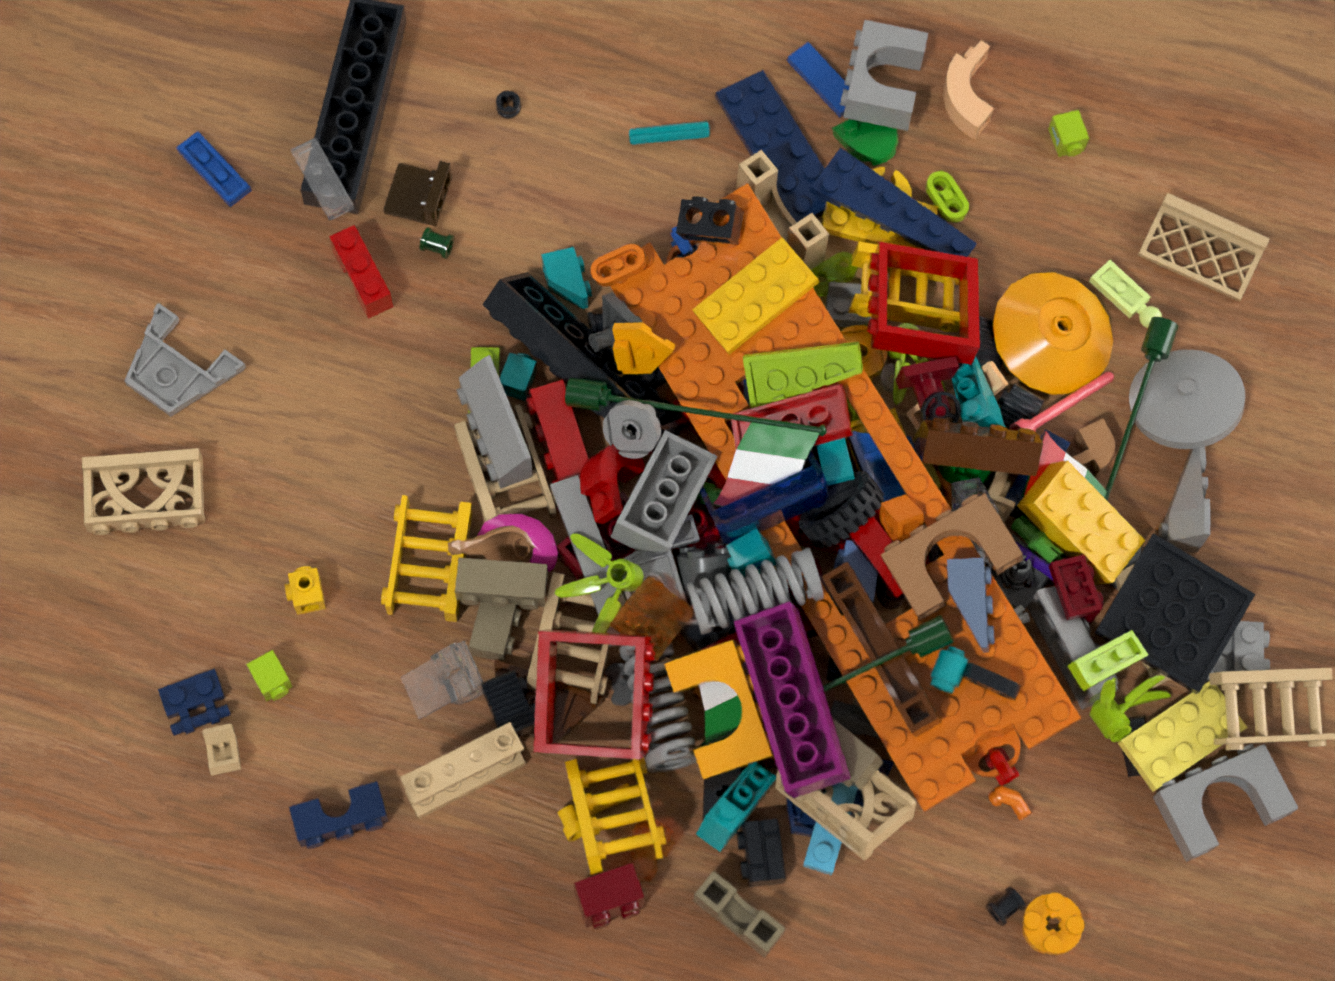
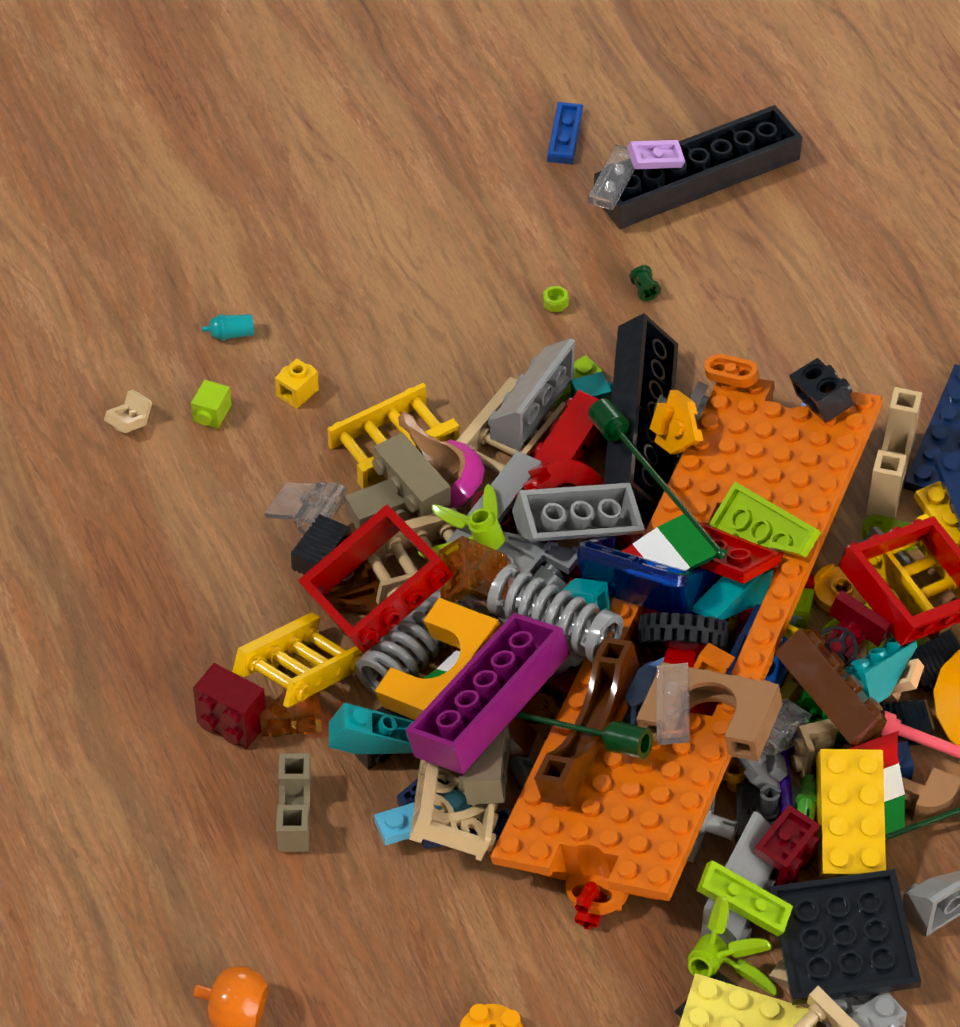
camera: 55 degrees right, 20 degrees down
(112, 466) = (275, 269): tan fence -> none
(169, 377) = (380, 207): light grey wing -> none
(193, 694) = (155, 374): dark blue plate -> none
(195, 596) = (230, 326): none -> teal piece
(333, 130) = (656, 154): none -> lavender plate
(362, 271) = (578, 244): red arch -> none
(365, 812) = (160, 524): dark blue arch -> none
(391, 322) = (555, 299): none -> lime tile
(418, 193) = (674, 249): dark brown bracket -> none
(464, 770) = (239, 567): tan fence -> none
(507, 97) = (802, 248): black bush -> none
(564, 276) = (694, 366): teal slope -> none
(645, 421) = (621, 458): light grey plate -> none
(669, 132) = (890, 359): teal axle -> none
(755, 295) = (795, 459): yellow plate -> none
(762, 853) = (360, 790): black brick -> none
(933, 580) = (673, 704): none -> clear tile
(949, 669) = (616, 776): teal brick -> none
(968, 590) = (680, 759): sand blue slope -> none
(991, 681) = (634, 808): black beam -> none
(1006, 906) = (474, 987): black bush -> none
(1012, 798) = (568, 926): orange arm -> none

